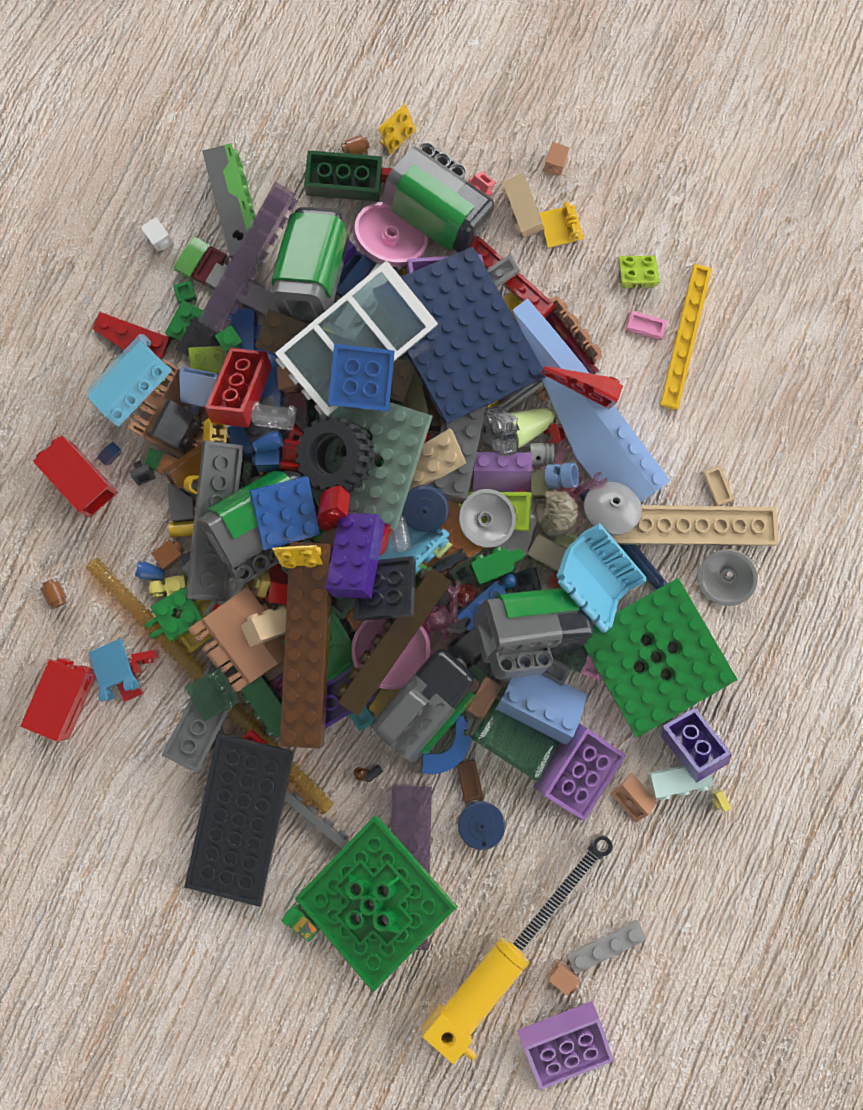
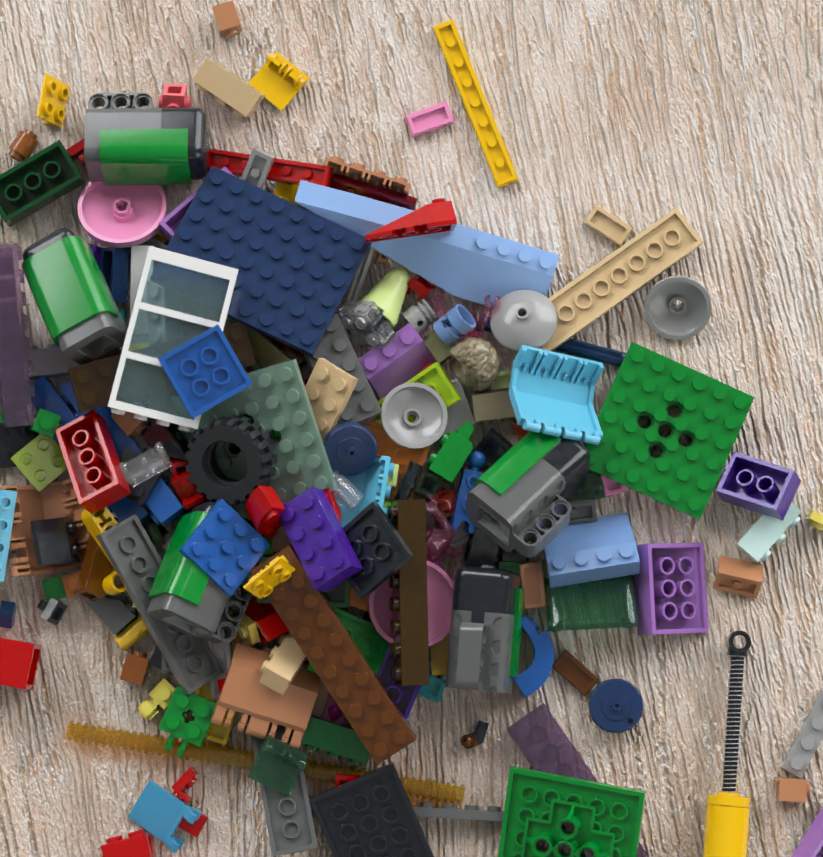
camera: 30 degrees left, 0 degrees up
(53, 593) = (53, 785): dark orange brick -> none
(148, 571) = (129, 698): blue cone -> none
(196, 387) = (47, 490): medium blue torso -> none
(268, 442) = (158, 493): blue cone -> none
(638, 270) = (384, 72): lime hinge -> none

